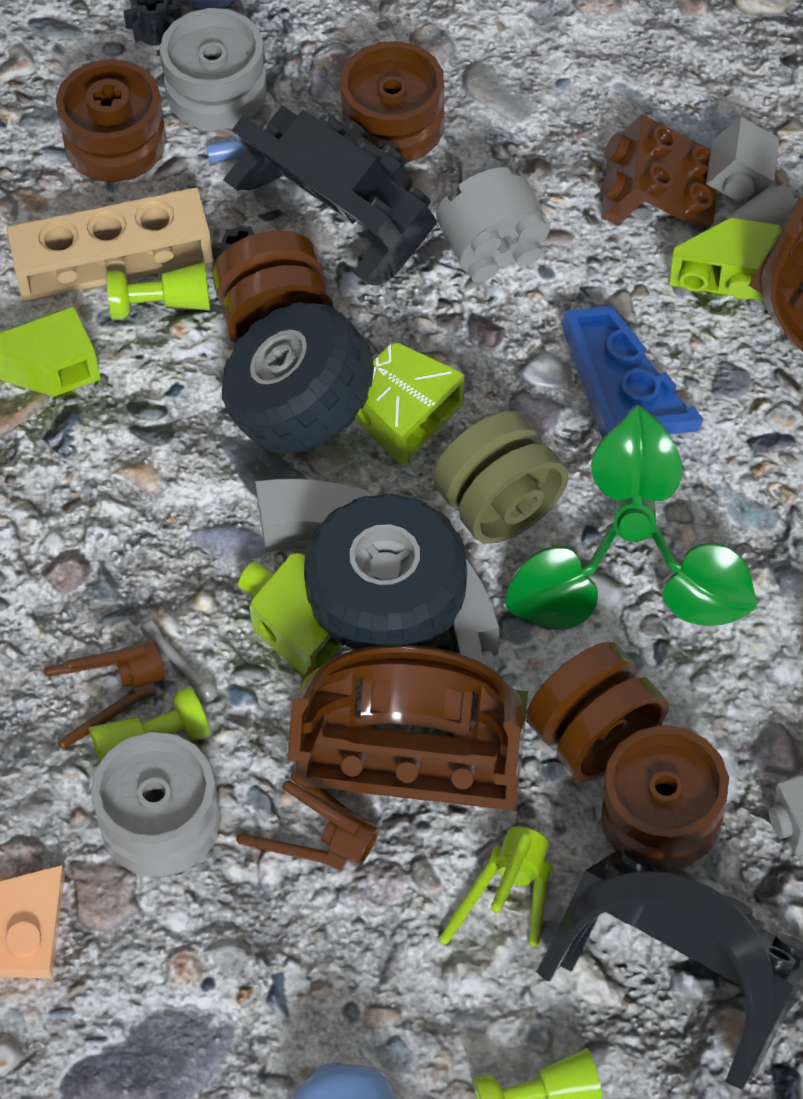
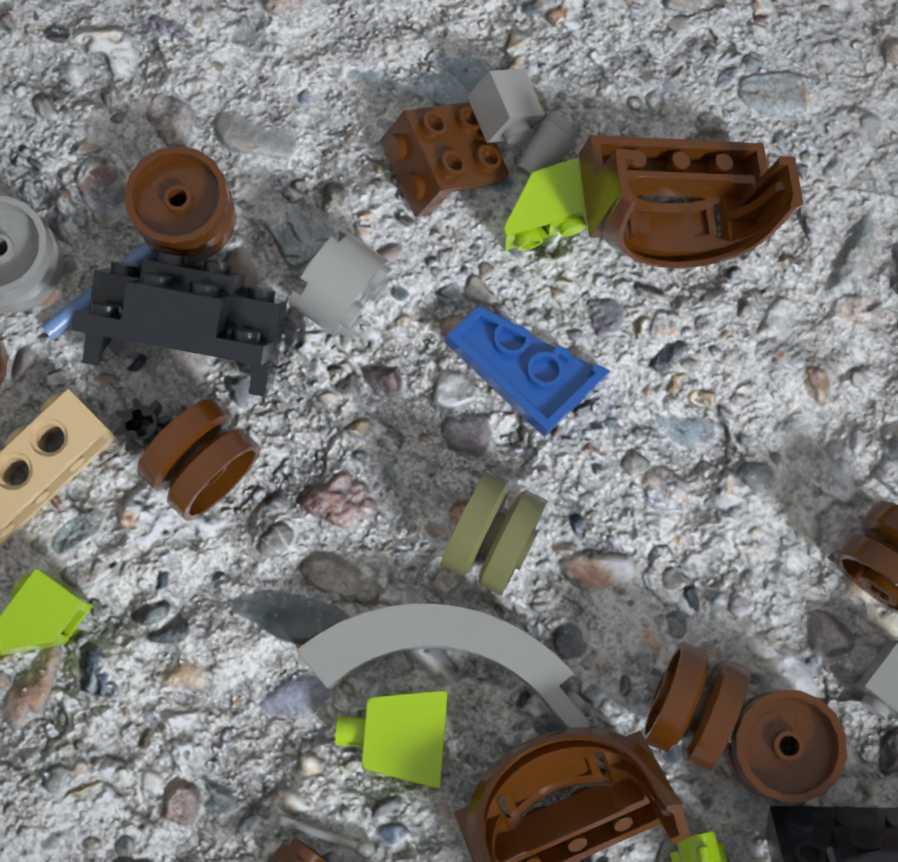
camera: 30 degrees left, 20 degrees up
(178, 289) = (108, 489): lime piece -> none
(297, 377) = (273, 535): black wheel -> none
(385, 572) = (466, 693): black wheel -> none
(409, 400) = (357, 489): lime torso -> none
(636, 468) = (612, 494): green plant -> none

